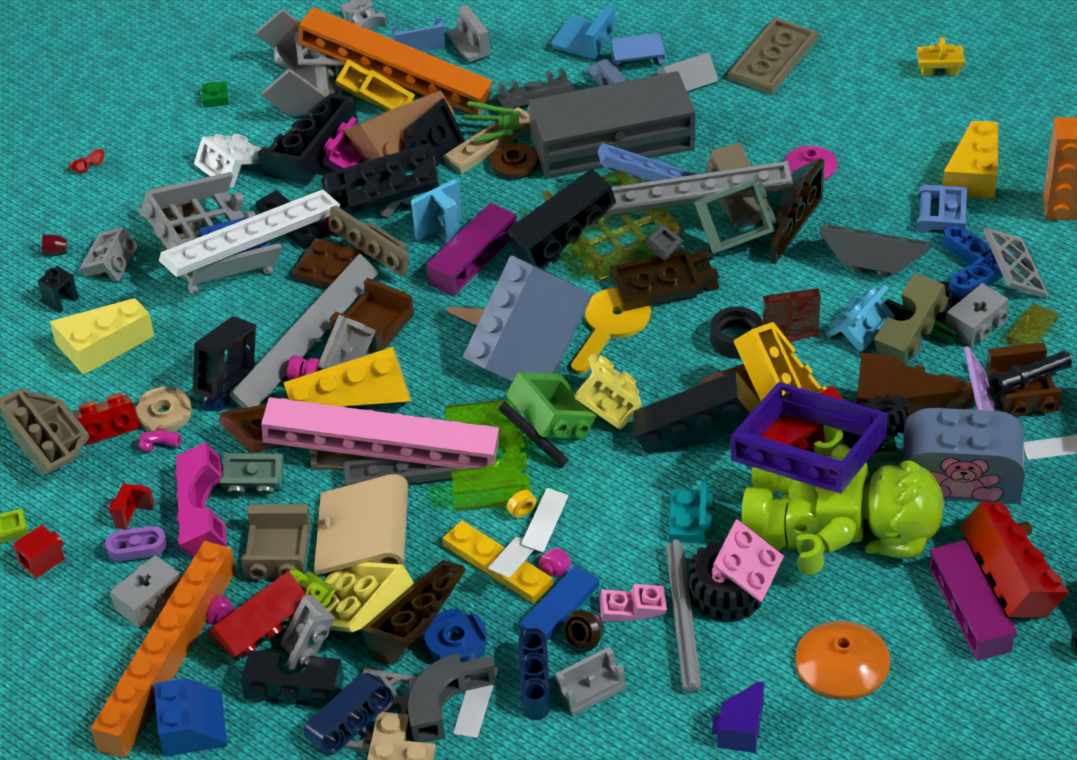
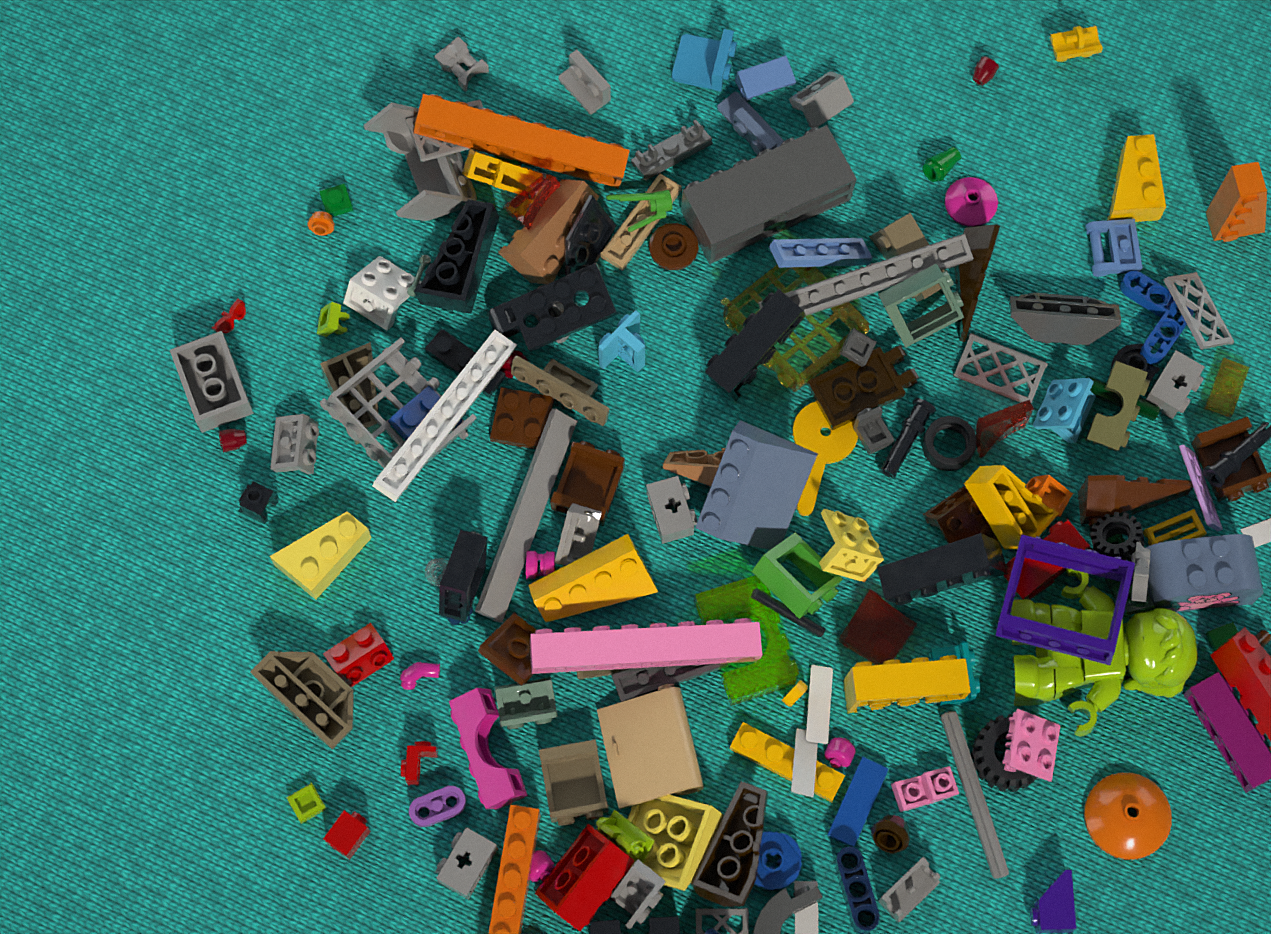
camera: 15 degrees left, 25 degrees up
(50, 197) = (211, 381): none -> light grey brick
(170, 420) = (411, 650): tan tile -> none
(178, 171) = (330, 318): none -> lime tile
(199, 103) = (321, 223): none -> orange plate
(341, 151) = (496, 271): dark pink bracket -> none
(396, 95) = (529, 201): none -> clear red plate
(422, 38) = (530, 91): medium blue hinge -> none
(445, 346) = (671, 525): none -> light grey brick
(470, 249) = (663, 378): magenta brick -> none
(622, 468) = (877, 630): none -> clear red plate
(632, 501) = (906, 682): none -> yellow wedge
(661, 310) = (872, 430): none -> dark grey bracket
(701, 318) = (912, 427): none -> black pin
(773, 56) = (902, 58): dark tan tile -> none
(776, 274) = (993, 348): none -> light grey window
(787, 129) = (940, 165): none -> green cone
(829, 376) = (1051, 491): none -> orange bracket
(849, 70) = (984, 70): none -> dark red hose
(895, 433) = (1141, 558): none -> light grey piece

